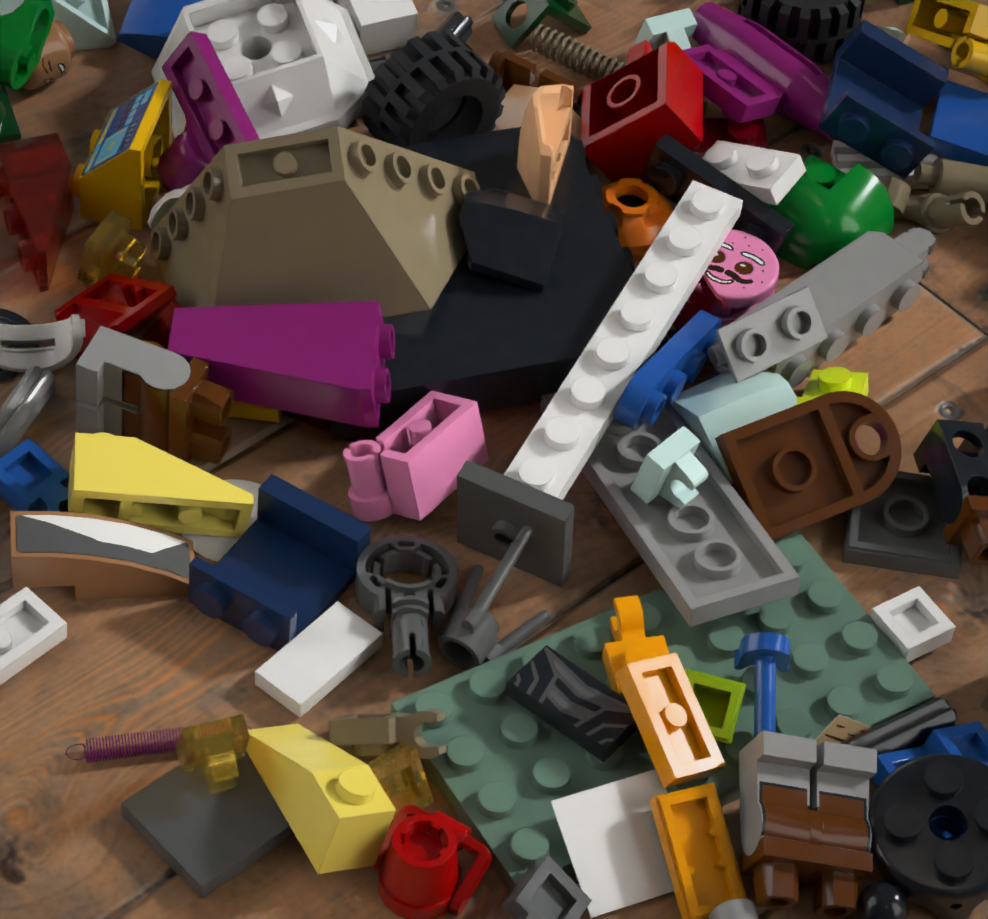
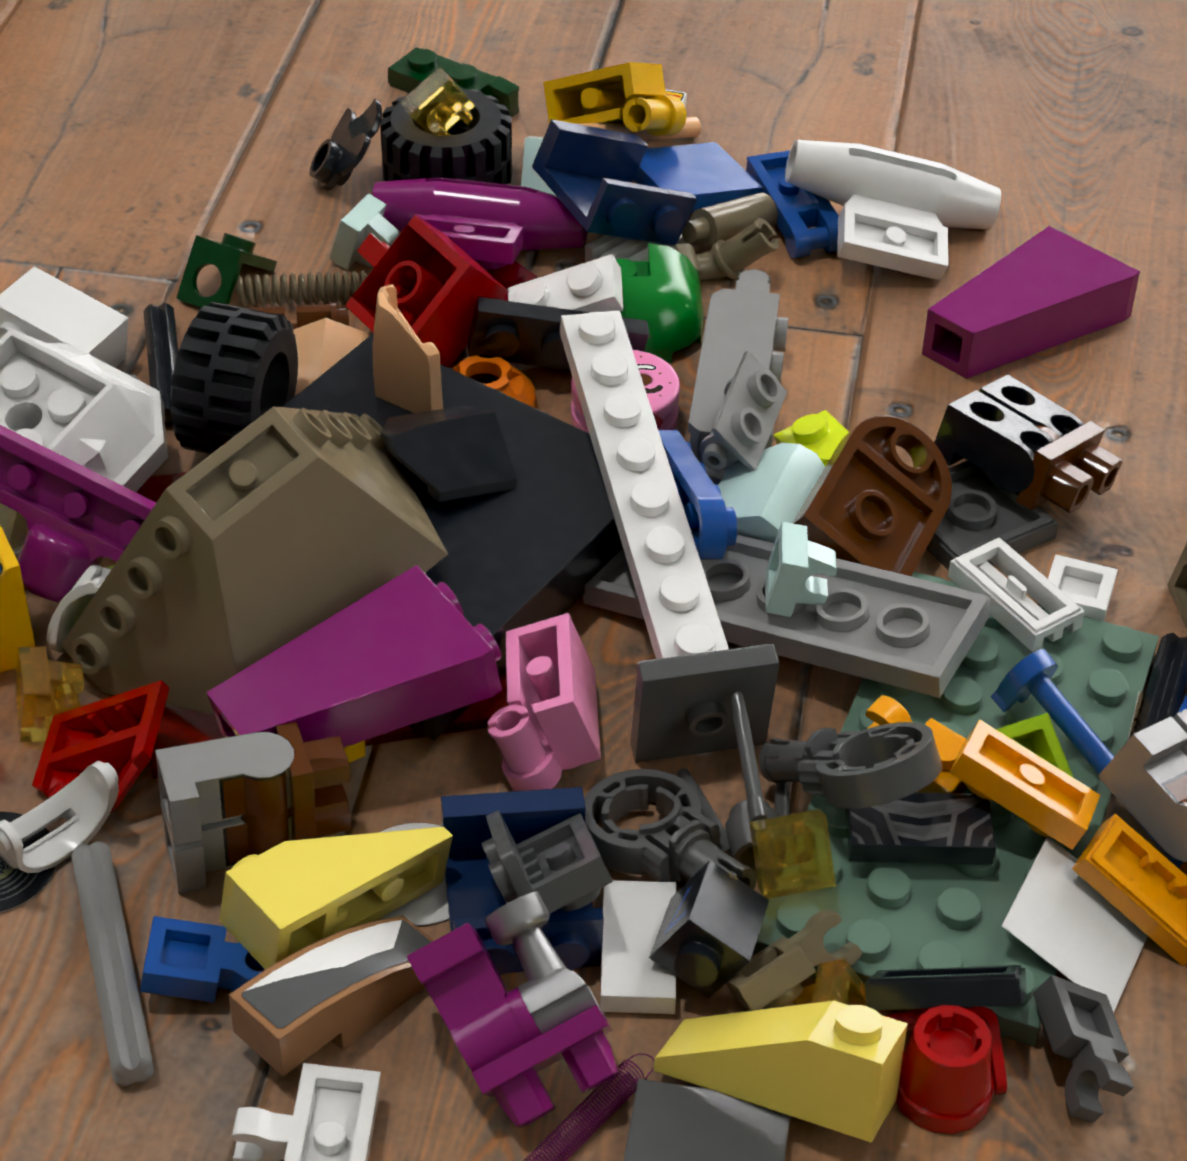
camera: 35 degrees left, 5 degrees down
(158, 645) = (522, 1030): none -> magenta hips
(214, 749) = (671, 1094): clear yellow tile -> none
(274, 559) = (556, 863): none -> dark grey bracket
(358, 673) = (709, 929): none -> black brick
(455, 659) = (792, 854): none -> clear yellow tile
(467, 814) = (946, 986): none -> black tile
(562, 634) = (856, 766): none -> dark grey pin
(843, 628) = (1009, 598): none -> white tile

